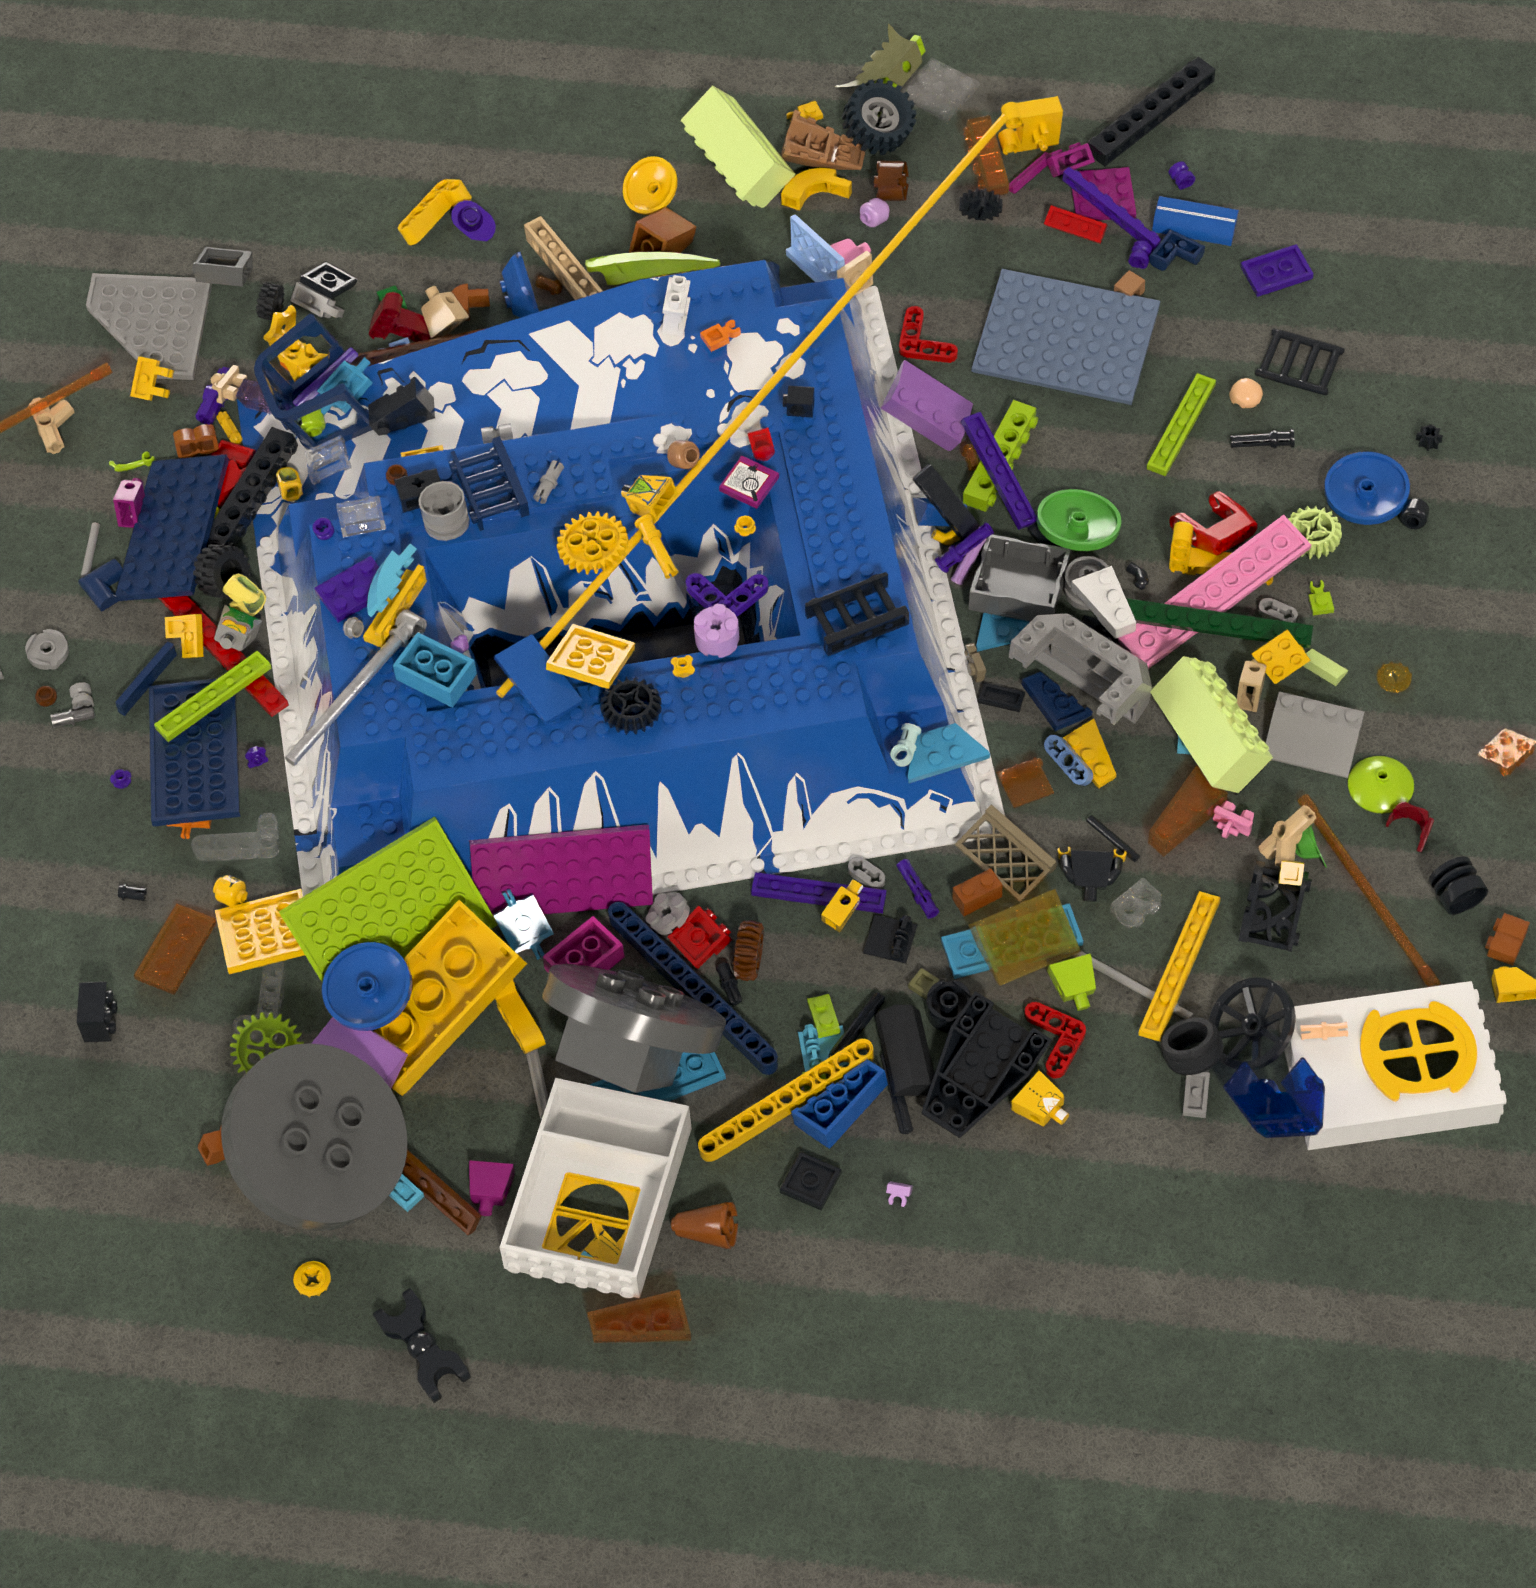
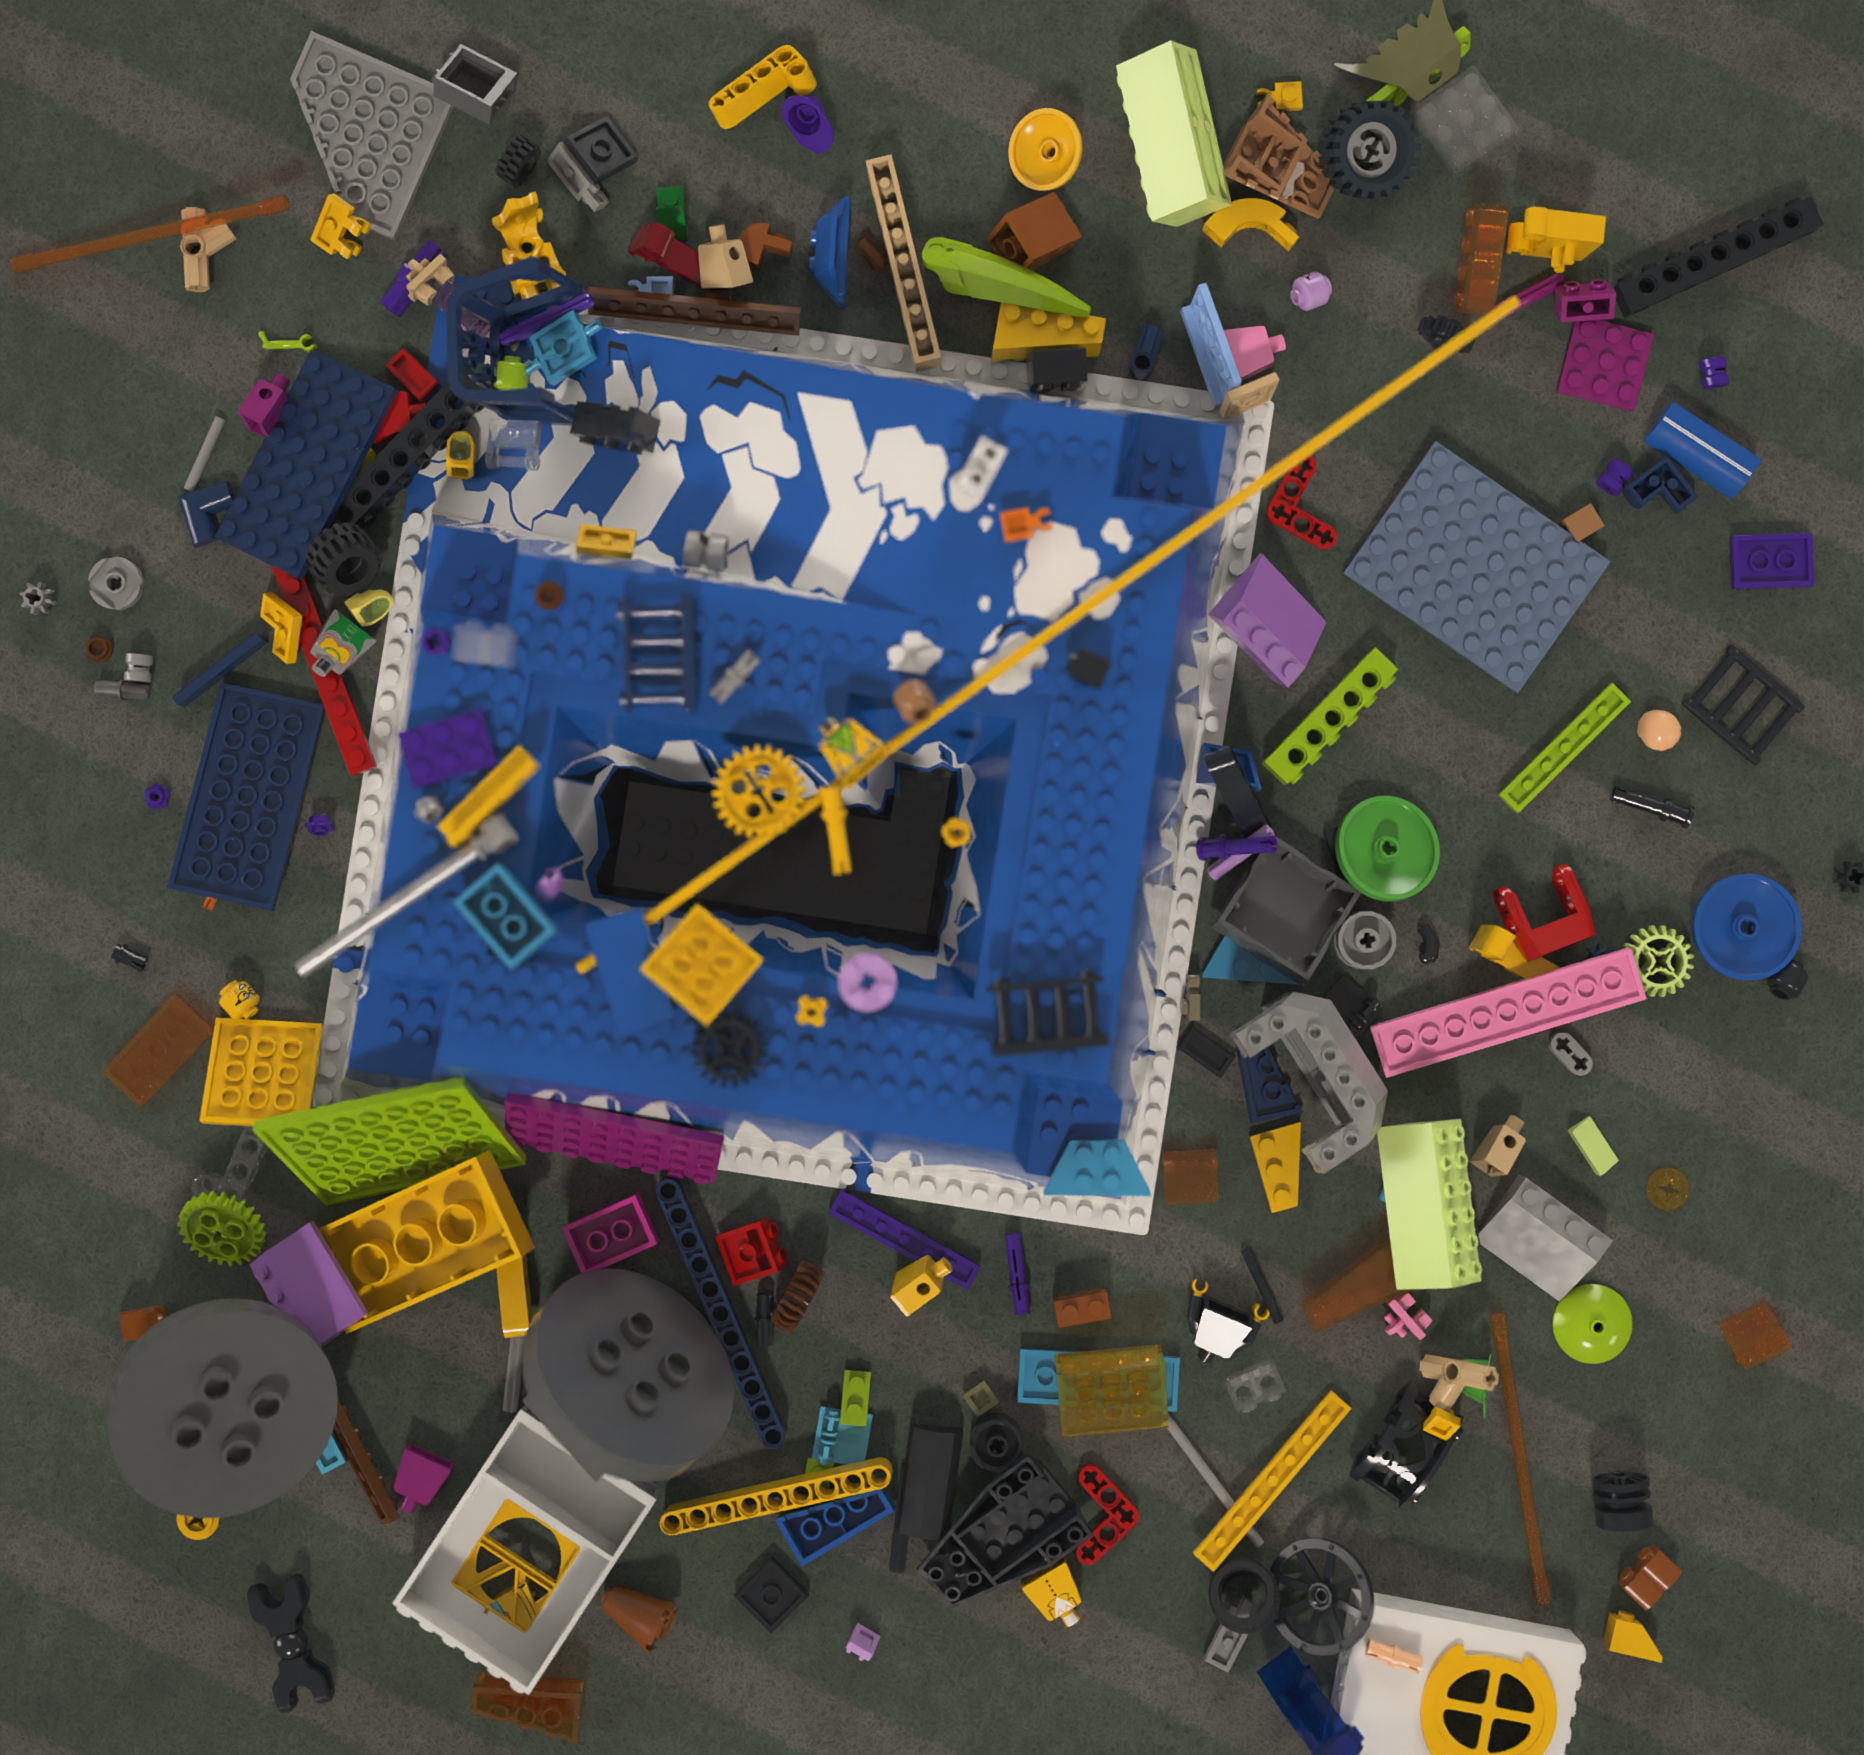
camera: 15 degrees right, 30 degrees up
(96, 1012) = (43, 1112): black brick -> none
(194, 441) = (369, 342): dark orange brick -> none
(212, 696) = (285, 736): lime plate -> none
(229, 427) = (418, 332): yellow axle -> none
(236, 842) = (264, 936): clear beam -> none
(242, 589) = (359, 601): light yellow rock -> none
(367, 986) = (343, 1218): blue dish -> none
(387, 579) = (479, 773): medium azure slope -> none
(410, 488) = (585, 639): black brick -> none
(444, 510) = (575, 672): light grey wheel -> none
(523, 923) = (554, 1173): plate -> none
(663, 904) = (712, 1203): light grey plate -> none
(744, 589) = (890, 932): dark purple beam -> none
(749, 482) = (984, 765): tile -> none
(761, 444) = (1018, 717): red plate -> none
(859, 1023) = (886, 1426): black axle -> none
(869, 869) = (962, 1236): light grey beam -> none
(890, 938) = (964, 1325): black hinge -> none
(892, 180) = (1350, 253): reddish brown brick -> none
(906, 744) = (1055, 1157): light aqua connector -> none
(945, 538) = (1218, 808): yellow arm -> none
(971, 457) = (1295, 704): clear orange pin -> none
(999, 470) = (1318, 751): dark purple plate -> none
(1019, 840) = (1155, 1265): dark tan fence -> none
(1074, 980) = (1149, 1457): lime torso -> none
(1075, 224) = (1552, 401): red plate -> none
(1077, 762) = (1255, 1158): medium blue beam -> none
(1106, 205) = (1601, 392): dark purple plate -> none
(1106, 600) = (1374, 998): white wedge -> none
(1217, 622) = (1478, 1050): dark green plate -> none
(1281, 656) = (1549, 1132): yellow hinge -> none
(1320, 601) = (1625, 1056): lime plate -> none
(1418, 814) = (1620, 1390): dark red helmet -> none

